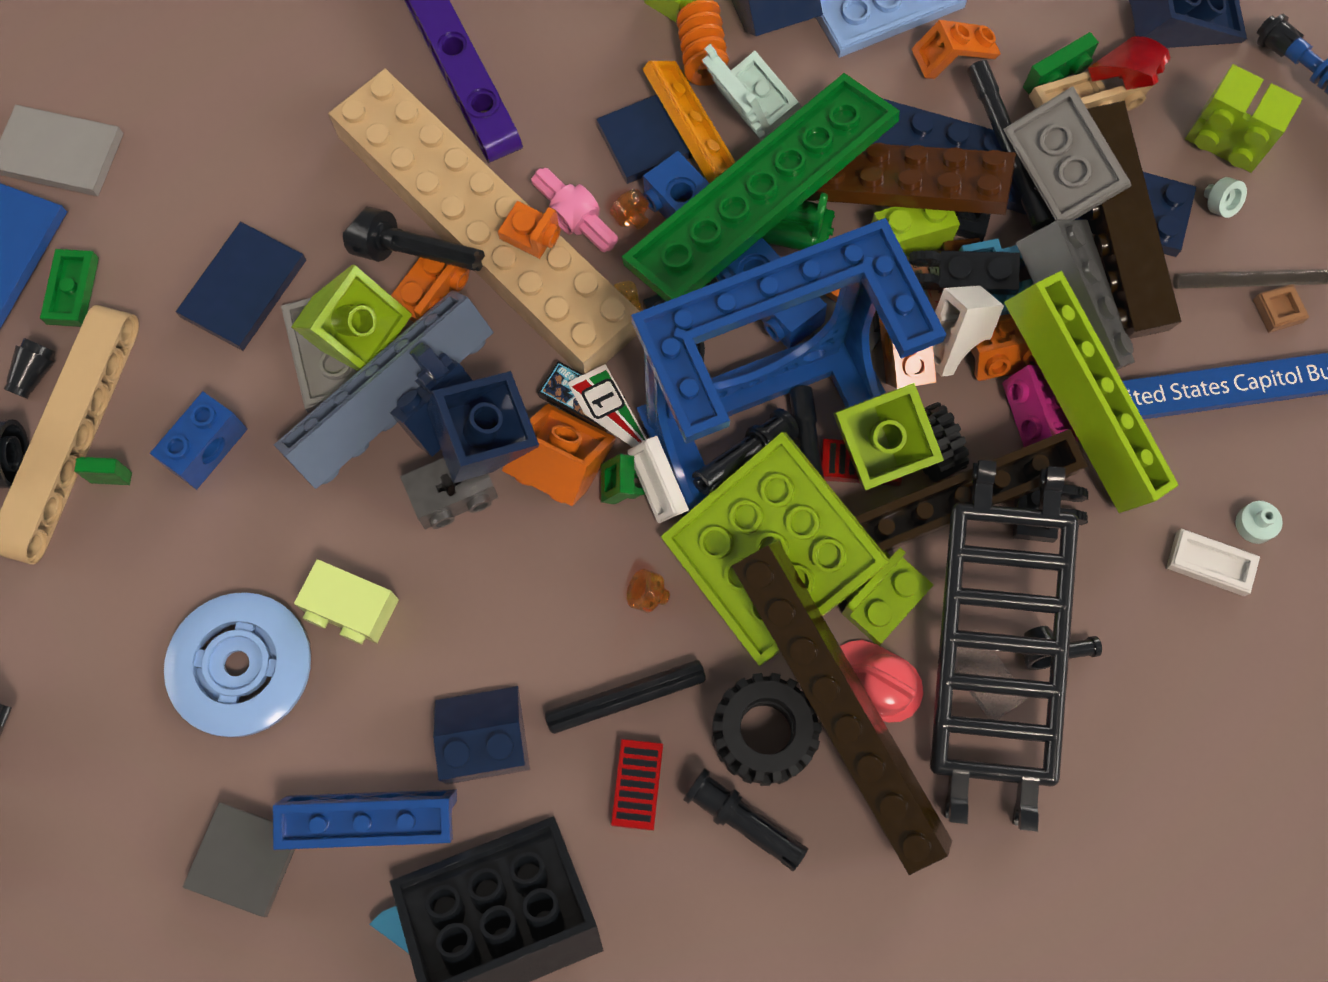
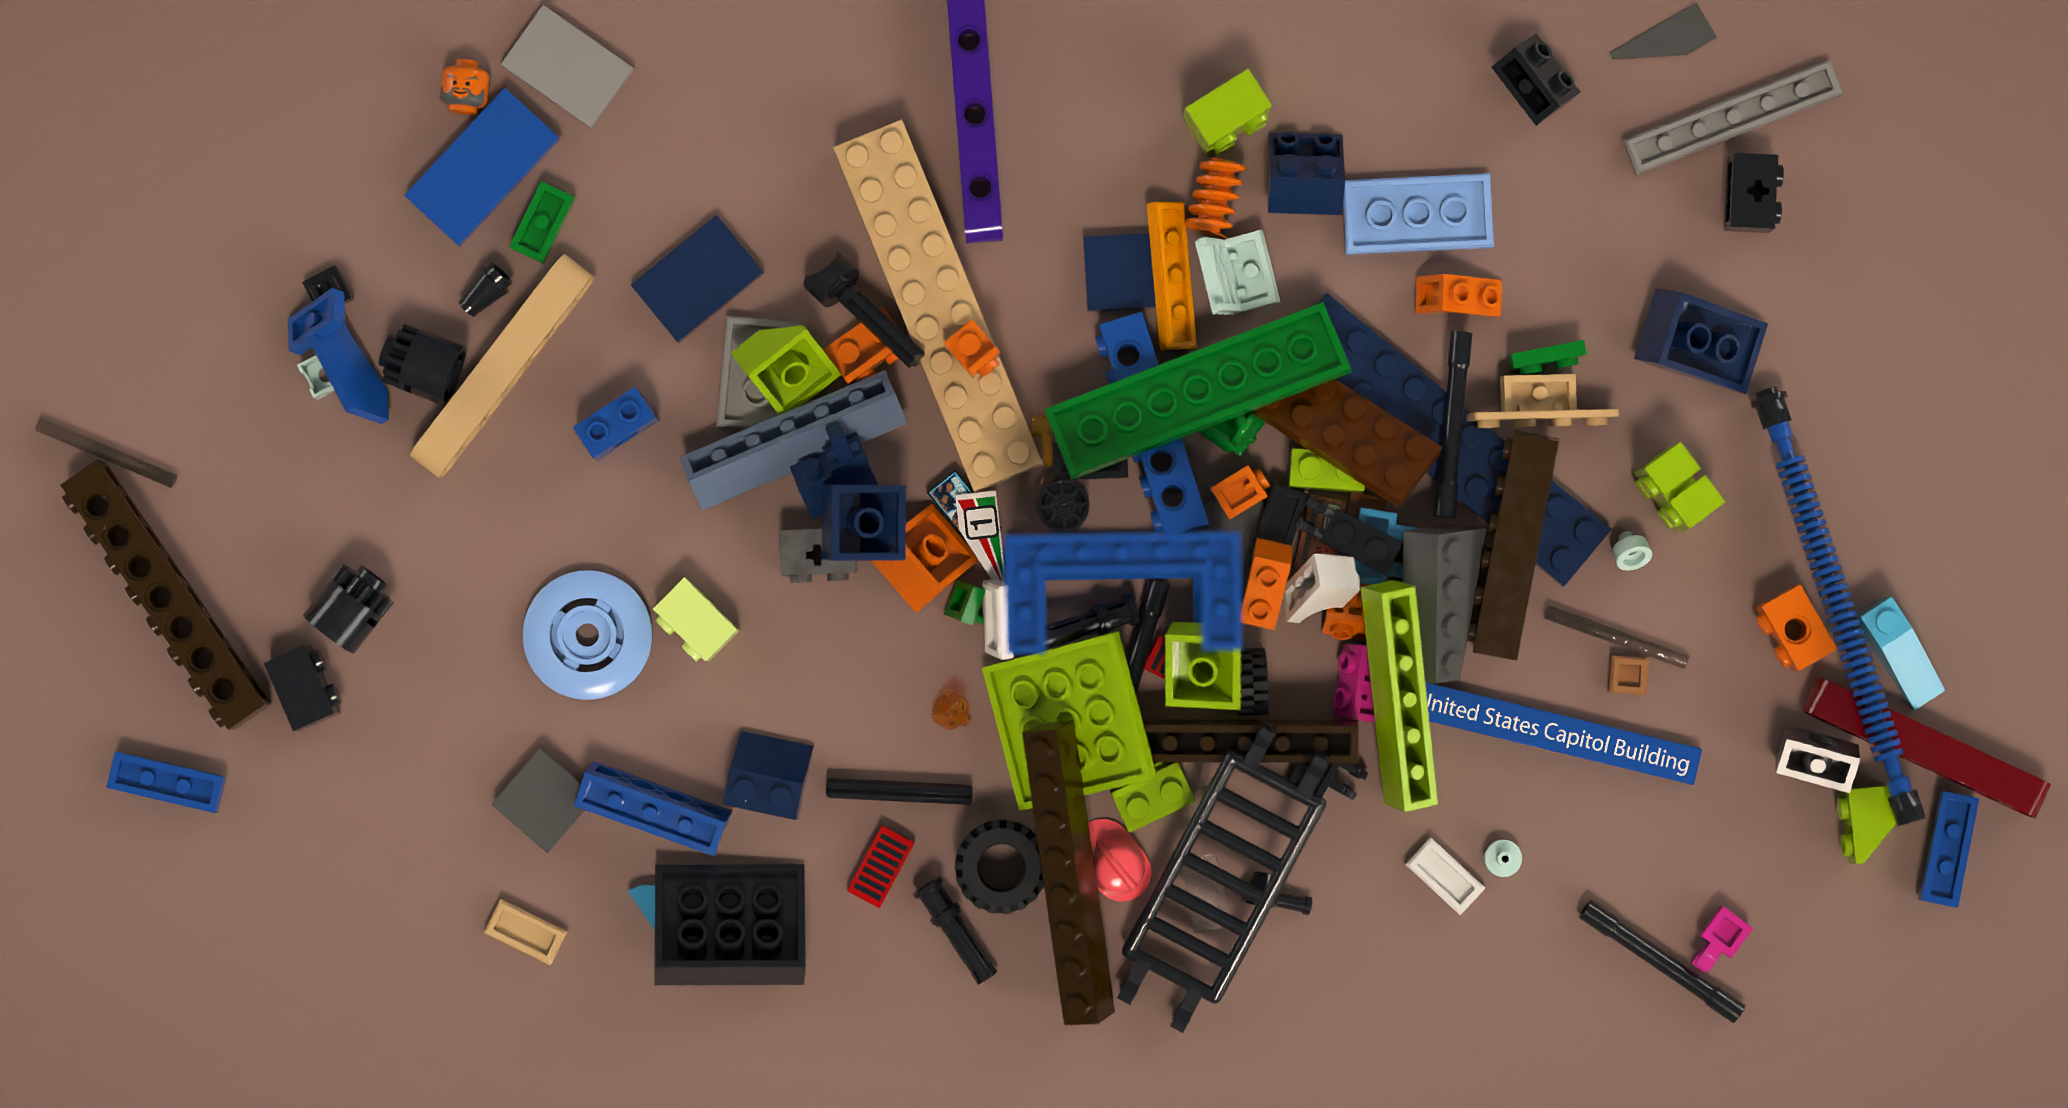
camera: 25 degrees right, 15 degrees up
(103, 471) = (524, 417): green tile -> none
(575, 209) = (1026, 325): bright pink axle -> none
(630, 209) = (1078, 347): clear orange tile -> none
(1067, 156) = (1484, 471): light grey tile -> none
(1134, 61) = (1608, 388): red slope -> none

